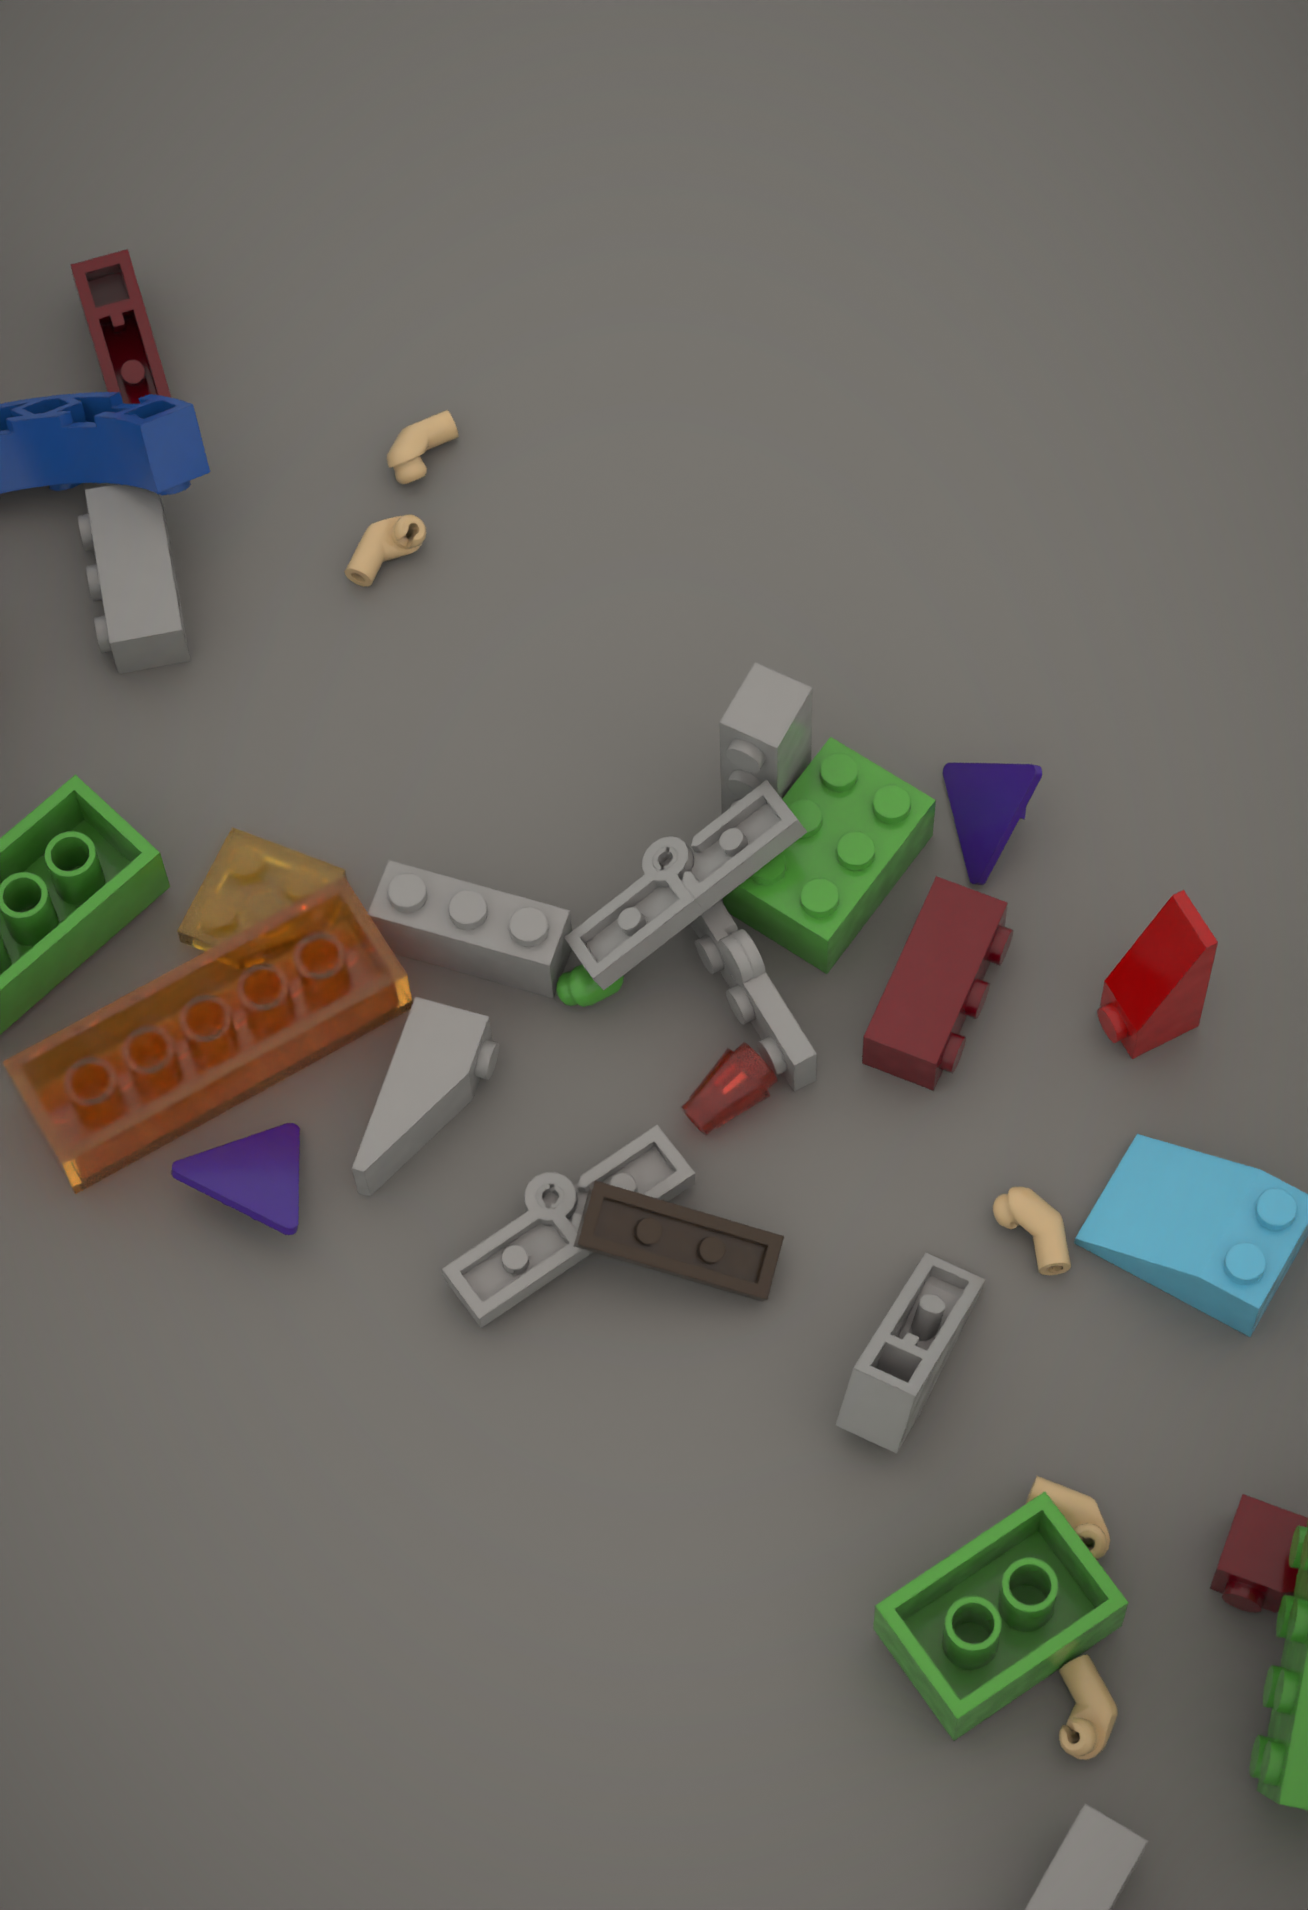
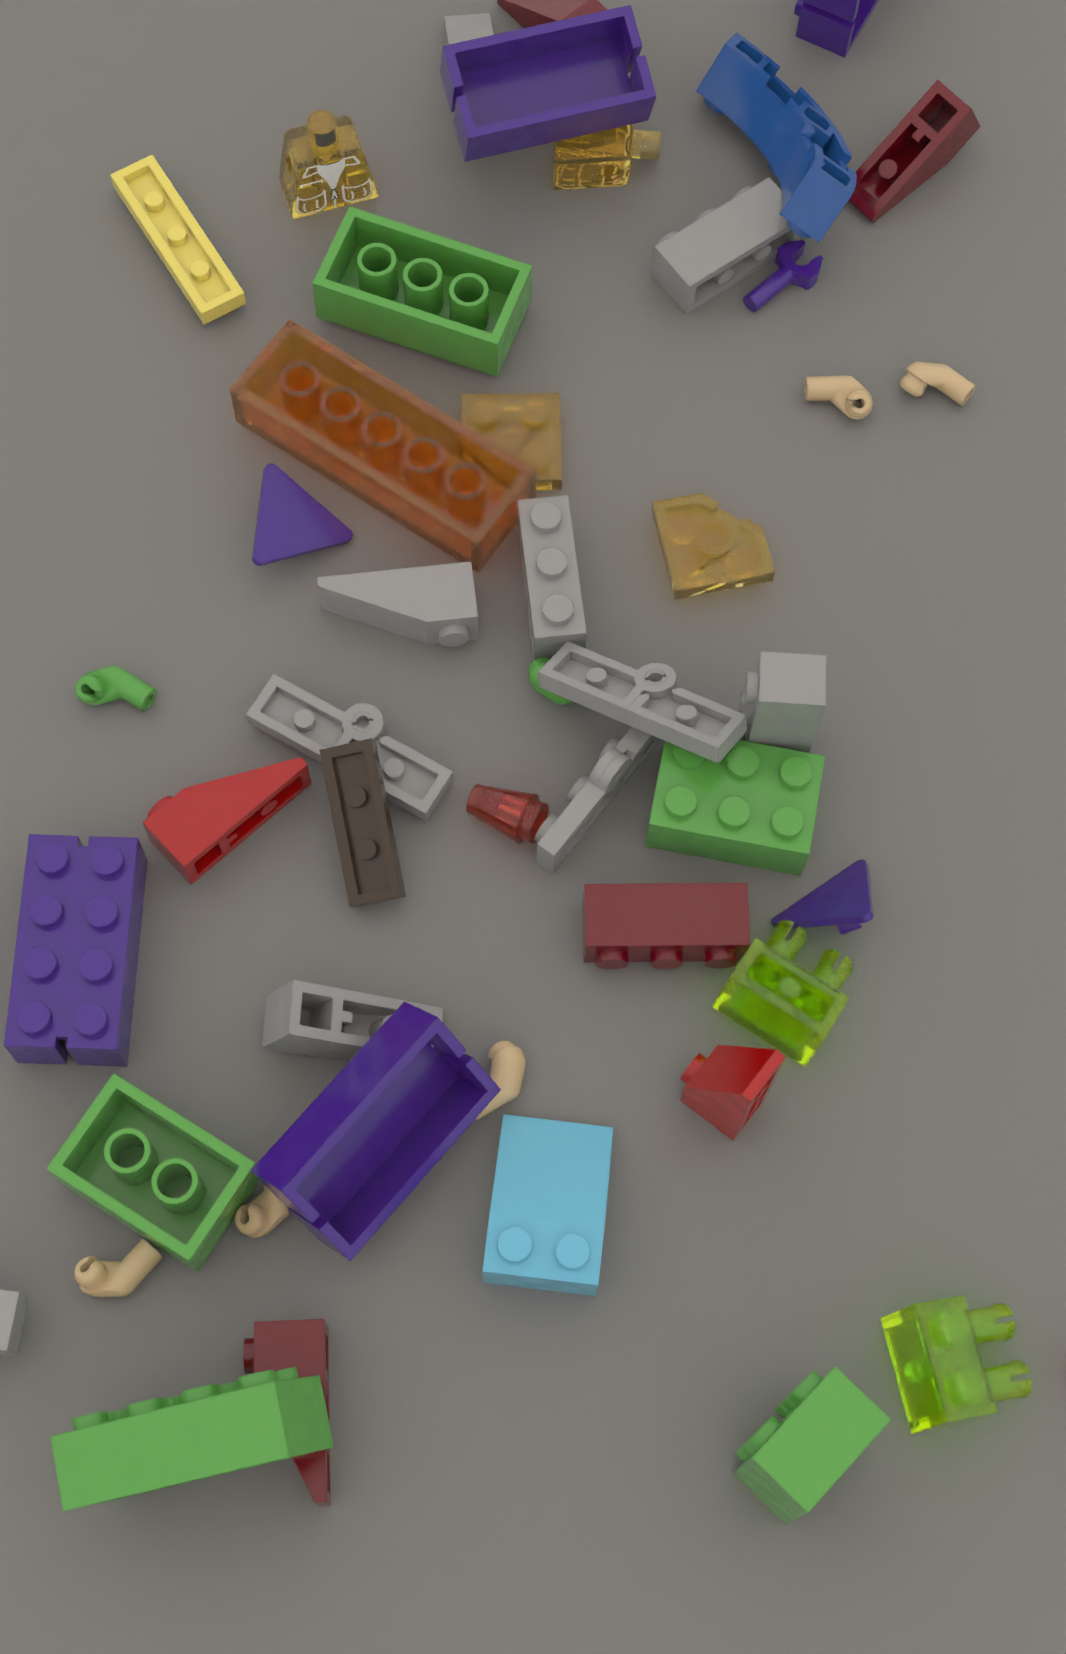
camera: 60 degrees right, 5 degrees up
(200, 534) = (786, 274): none -> dark purple bar
(359, 1458) = (112, 685): none -> bright green arm
(506, 756) = (709, 547): none -> clear yellow plate
(591, 1406) = (218, 815): none -> red slope
(688, 1611) = (76, 950): none -> dark purple piece
(1055, 1356) = (376, 1129): none -> dark purple piece
(1077, 901) = (783, 999): none -> clear neon green brick

